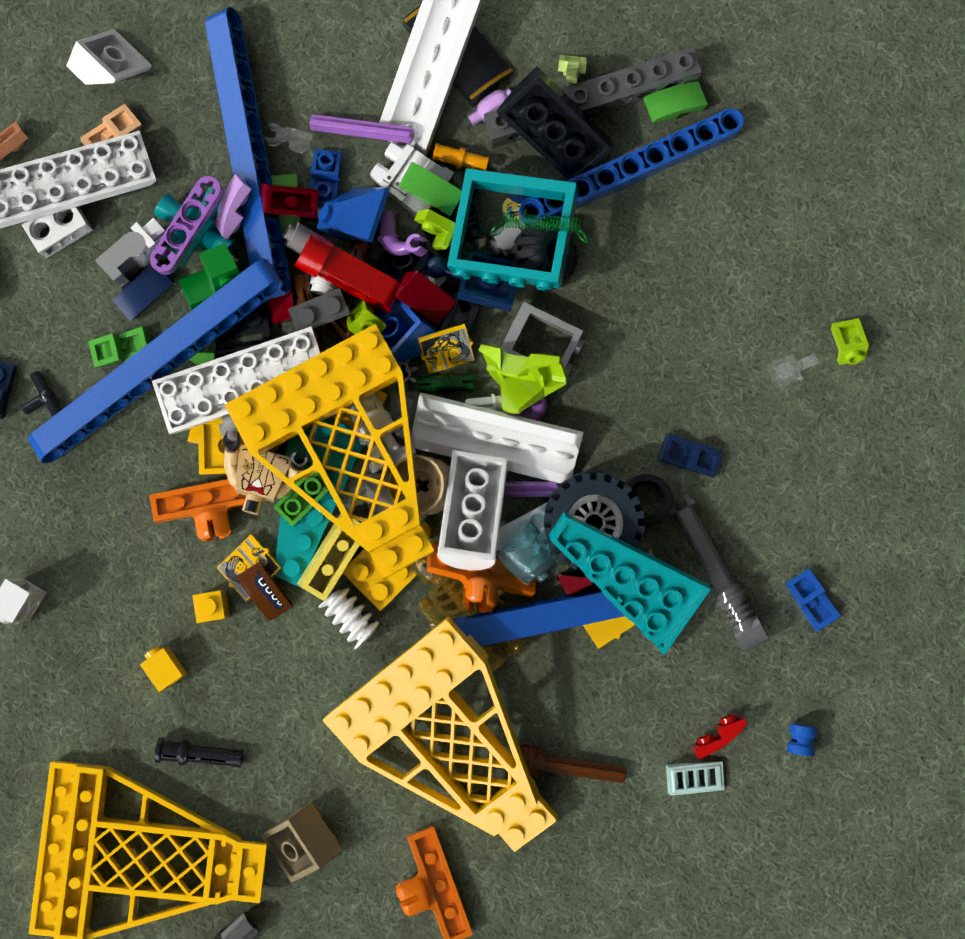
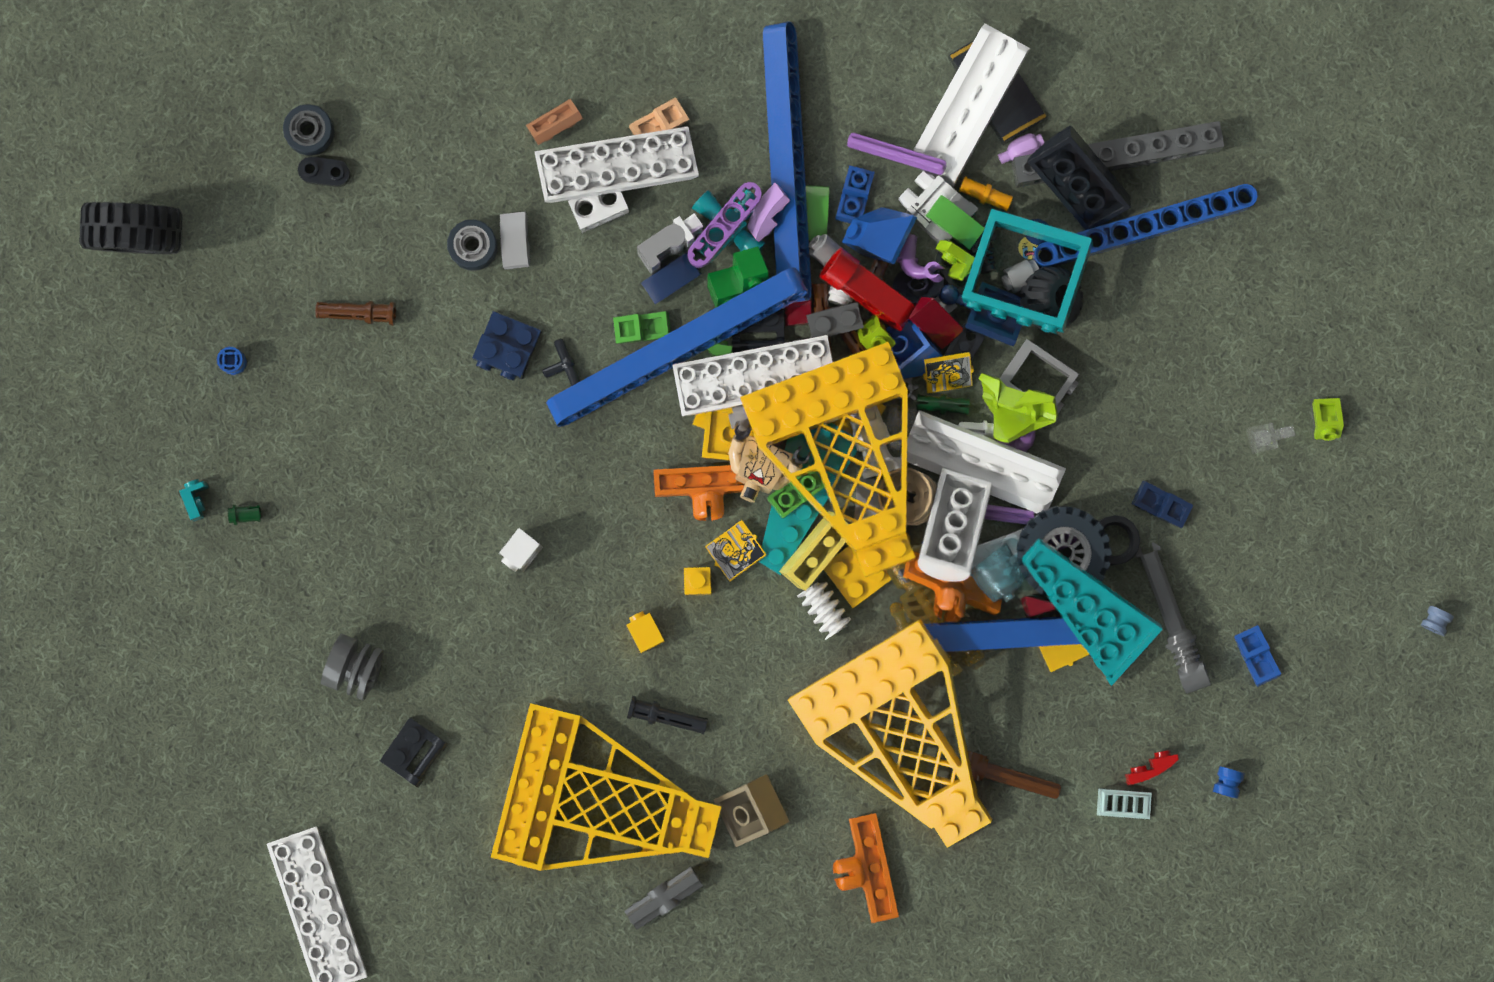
camera: 10 degrees right, 0 degrees up
(105, 59) = (665, 54): white slope -> none
(264, 591) = (748, 574): reddish brown slope -> none
(289, 200) = (821, 213): dark red slope -> none
(296, 139) = (833, 154): clear plate -> none
(571, 67) = (1103, 122): yellowish green plate -> none
(578, 231) = (1090, 286): green piece -> none
(675, 100) = (1195, 168): bright green slope -> none

